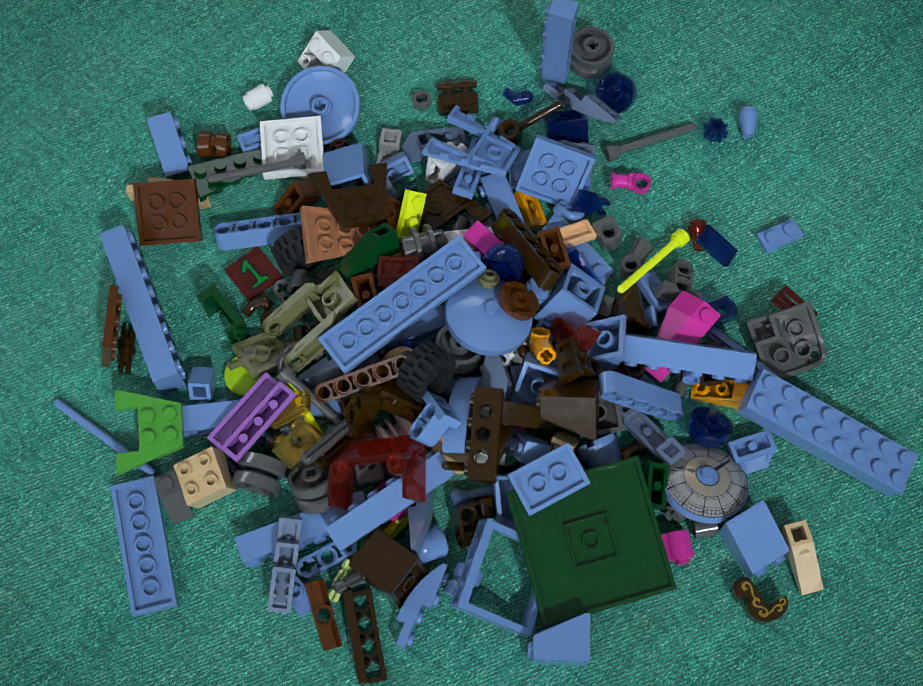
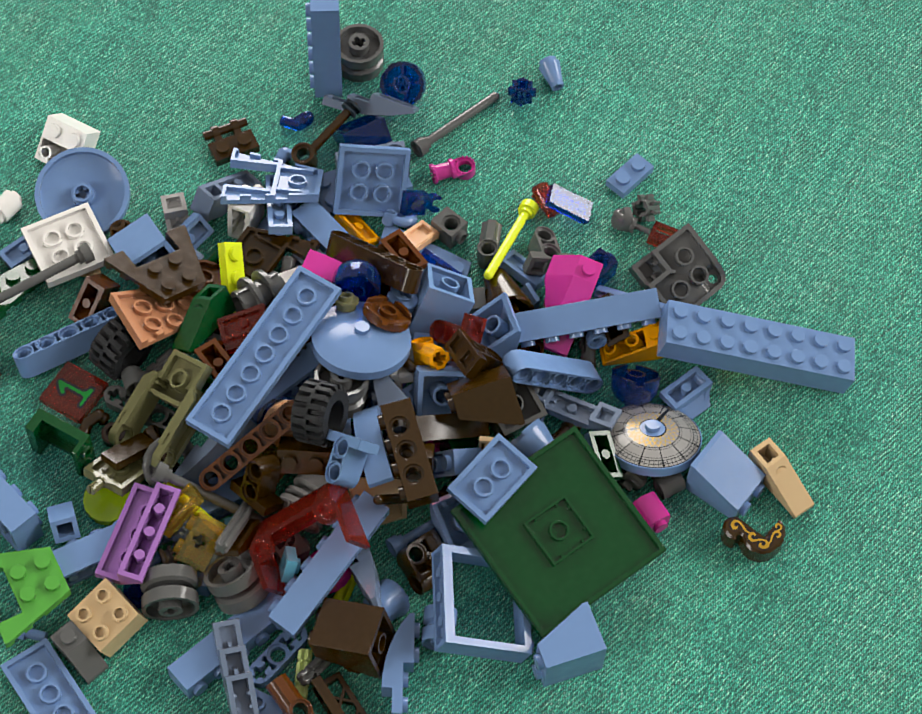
camera: 25 degrees left, 10 degrees down
(272, 341) = (127, 451): none -> dark brown tile
(360, 488) = (289, 564): none -> medium azure plate
(423, 105) = (196, 160): dark grey bush -> none
(758, 276) = (625, 221): none -> dark grey piece
(781, 271) = (646, 207): none -> dark grey gear

